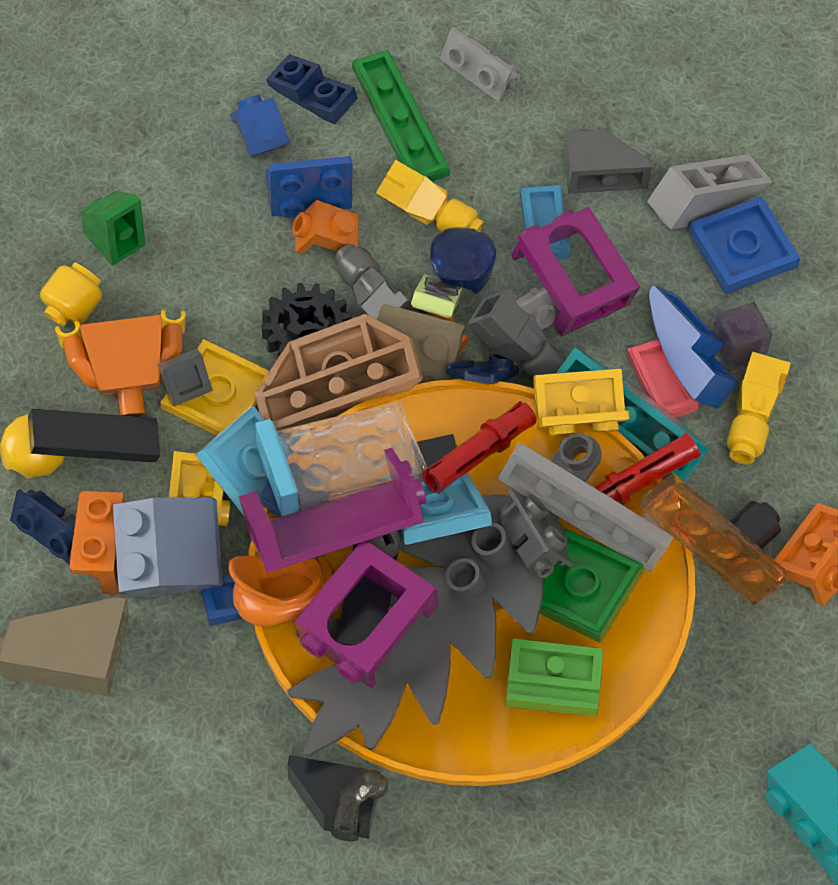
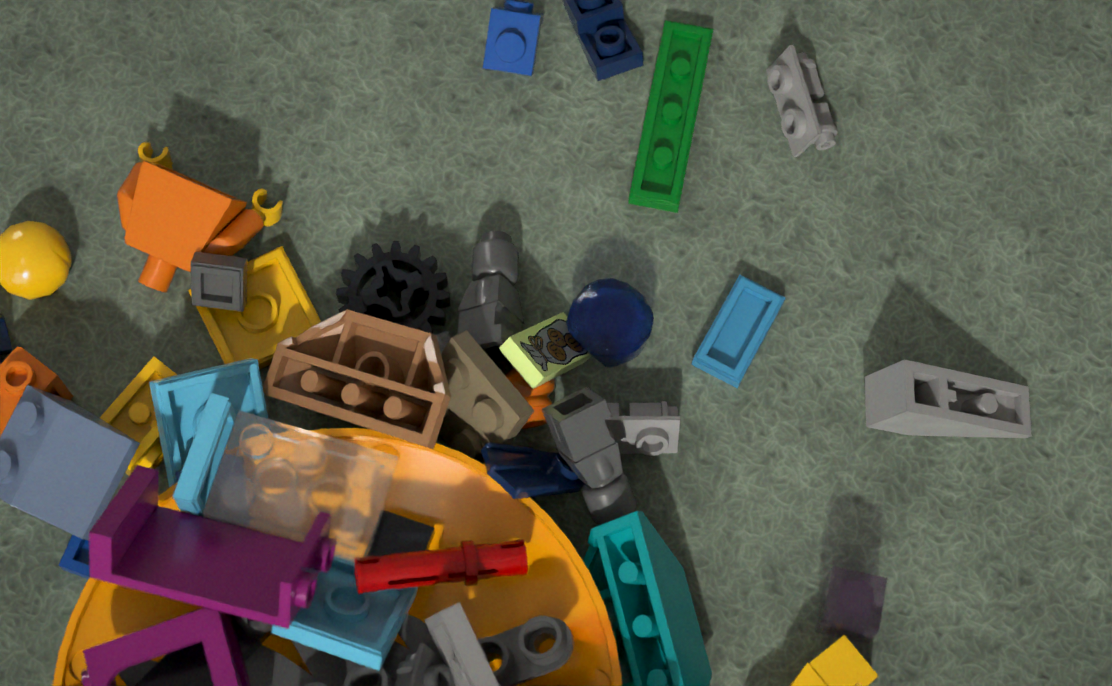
camera: 35 degrees right, 10 degrees up
(71, 294) = (183, 116): yellow head -> none
(93, 435) = (87, 288): black tile -> none
(115, 225) = (276, 65): green slope -> none
(279, 594) = (97, 607): orange piece -> none
(300, 183) = (511, 139): blue bracket -> none
(325, 227) = (497, 198): orange bracket -> none
(425, 200) = (622, 231): yellow piece -> none
(576, 310) = (685, 370): magenta panel -> none
(580, 400) = (588, 583): yellow bracket -> none
(603, 163) = (847, 300): dark grey slope -> none
(659, 379) = (733, 595): coral tile -> none
(690, 348) = (783, 581): slope -> none
(743, 245) = (939, 494): blue plate -> none

